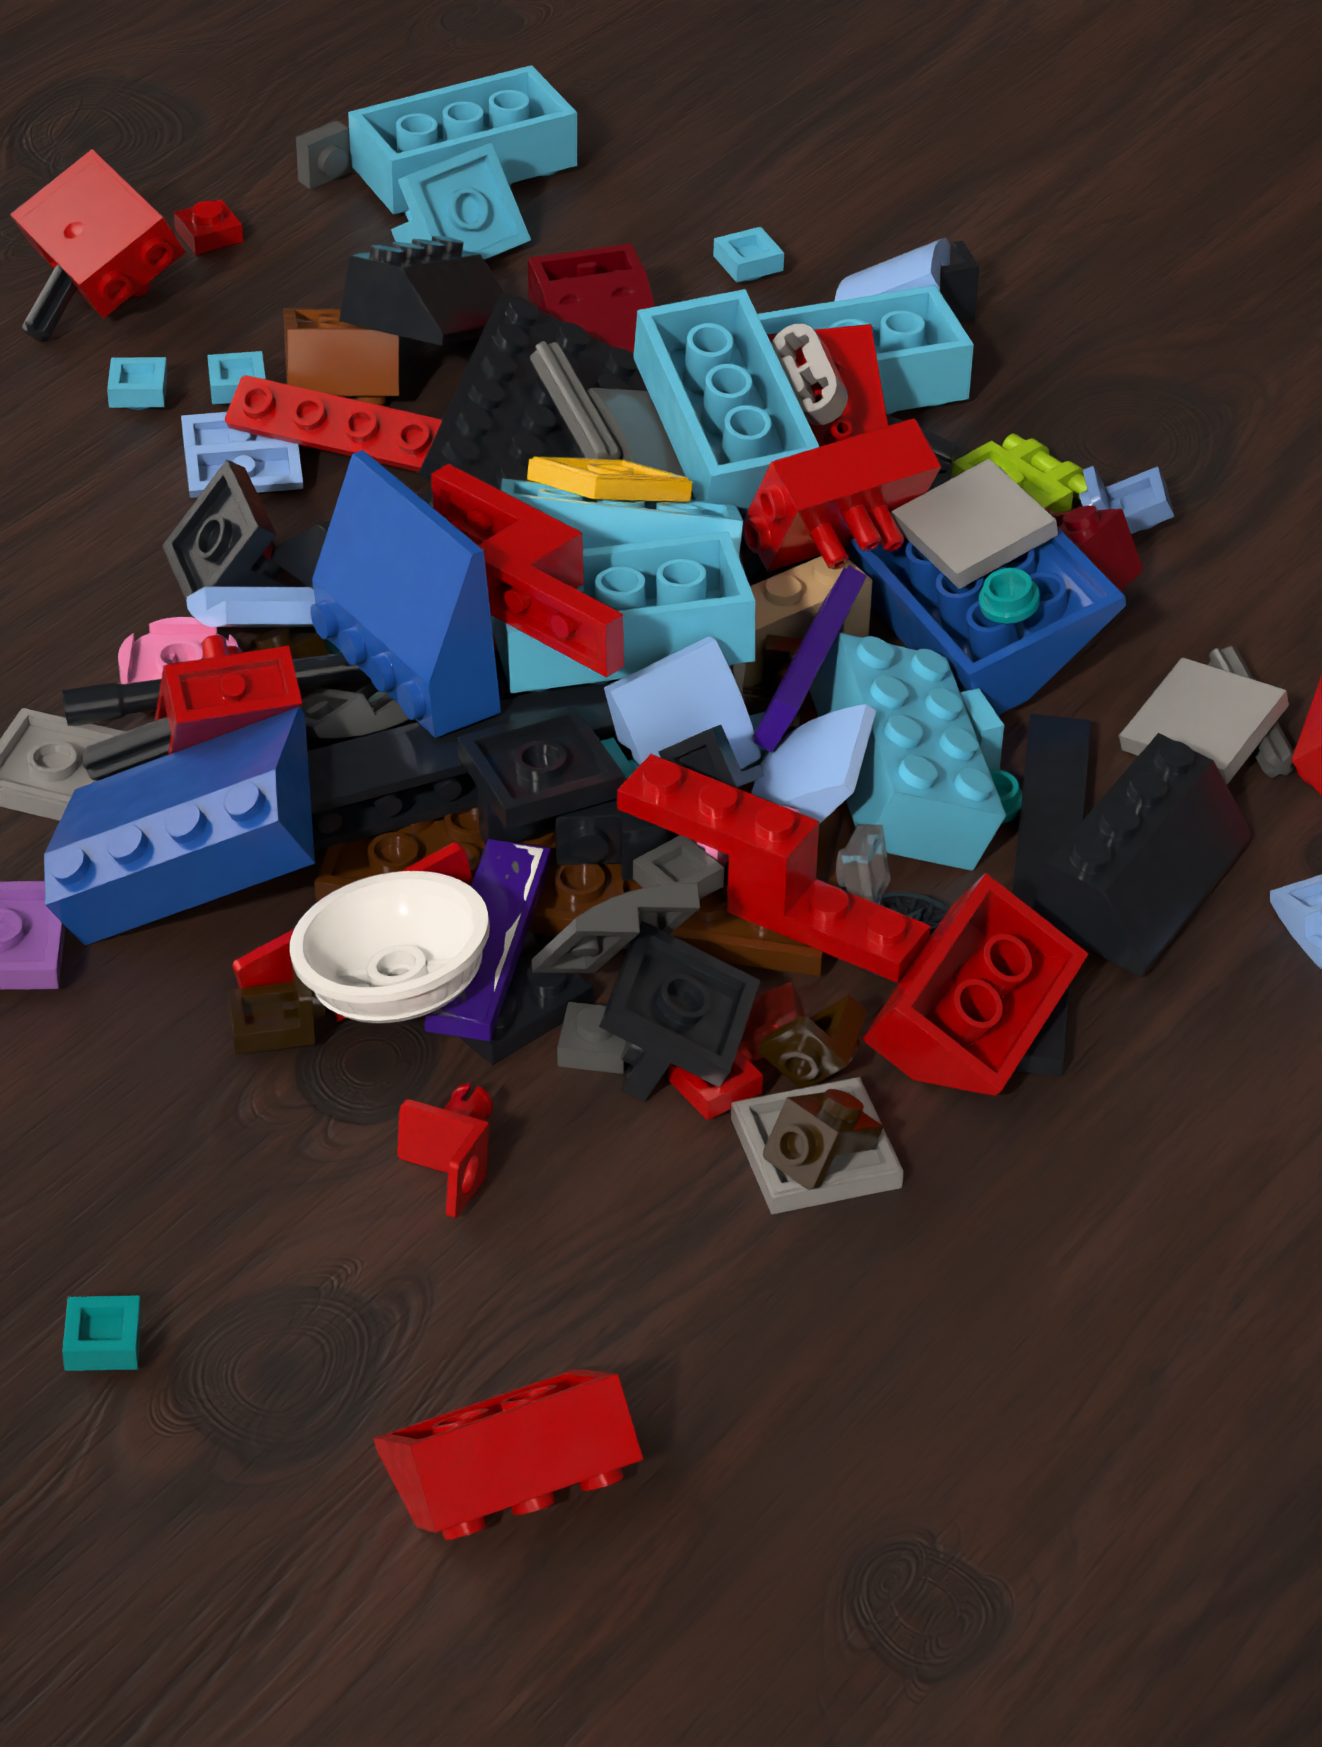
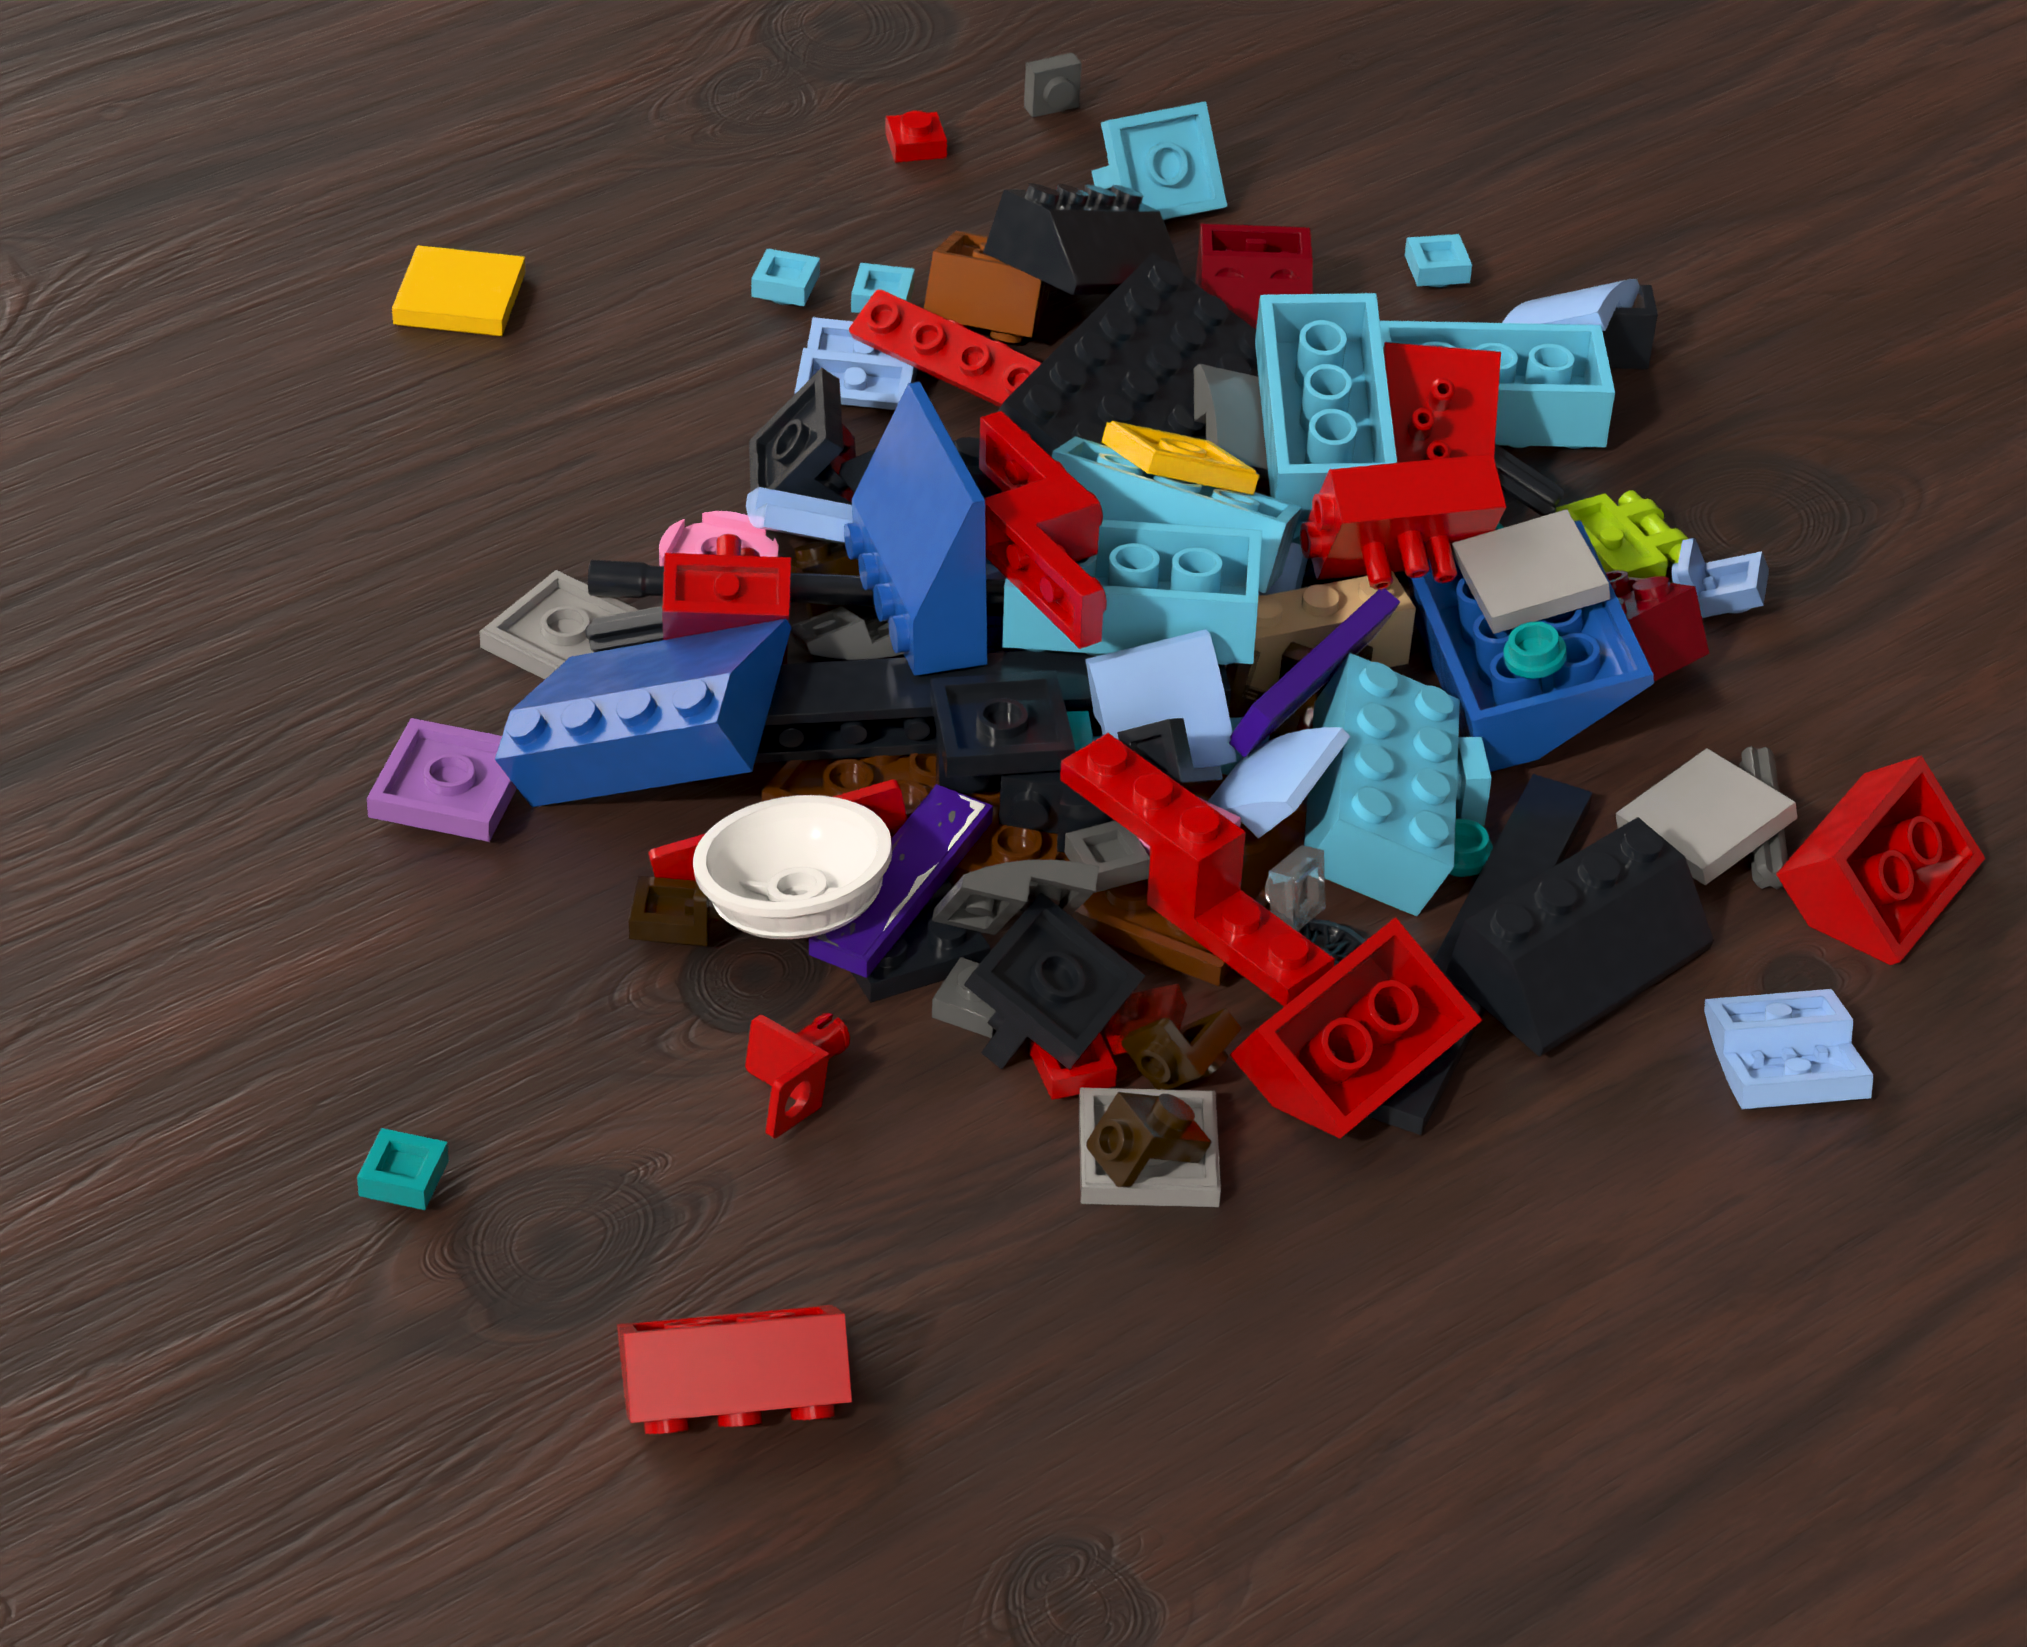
camera: 15 degrees right, 0 degrees up
(96, 240) = (791, 130): piece -> none
(513, 109) = (1247, 80): medium azure brick -> none
(573, 402) = (1179, 375): dark grey axle -> none
(818, 369) = (1425, 387): light grey beam -> none

